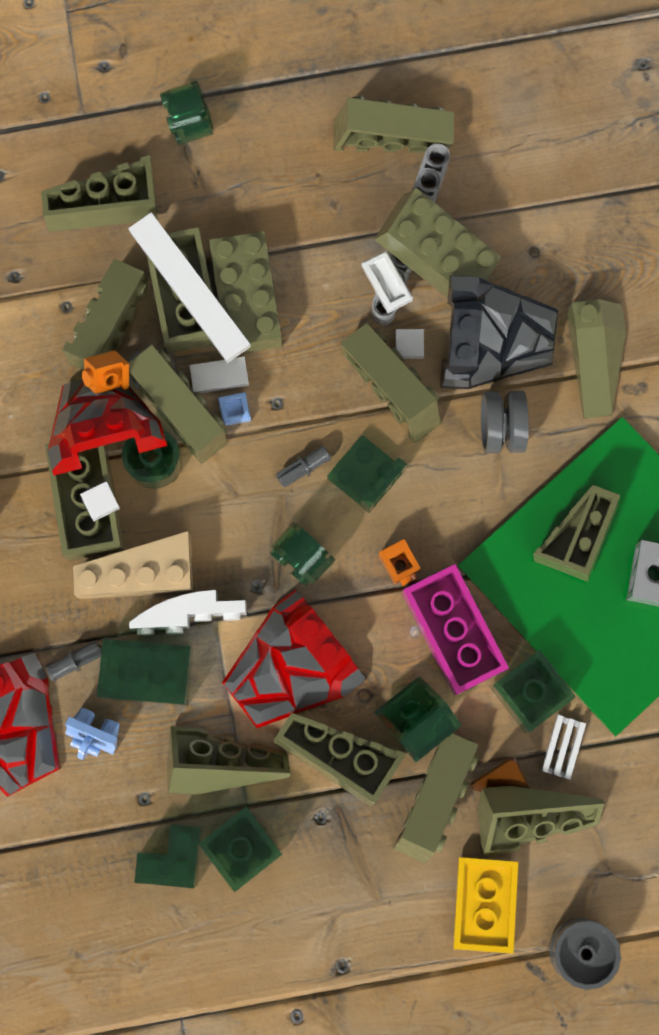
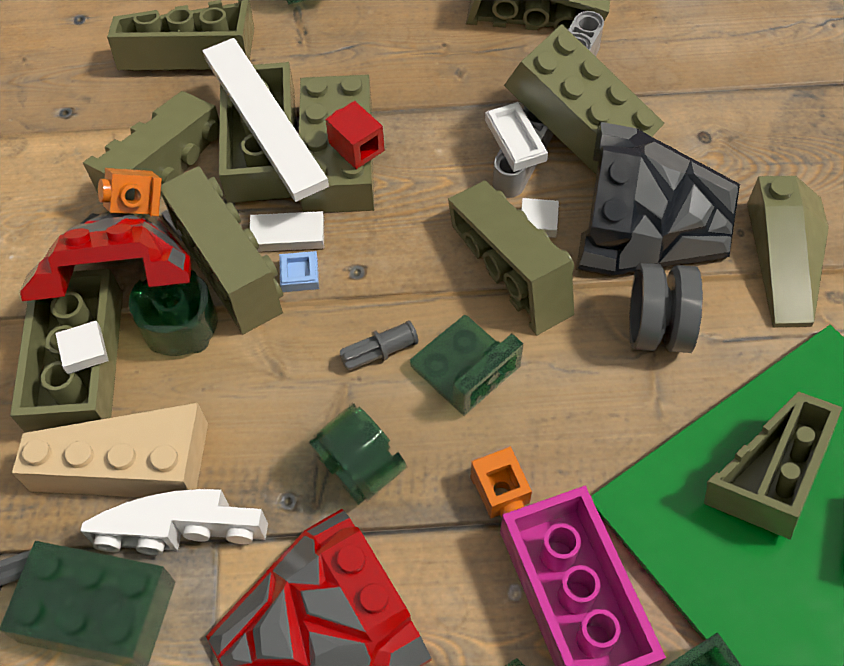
camera: 10 degrees right, 20 degrees down
(264, 302) = (355, 134): none -> red brick

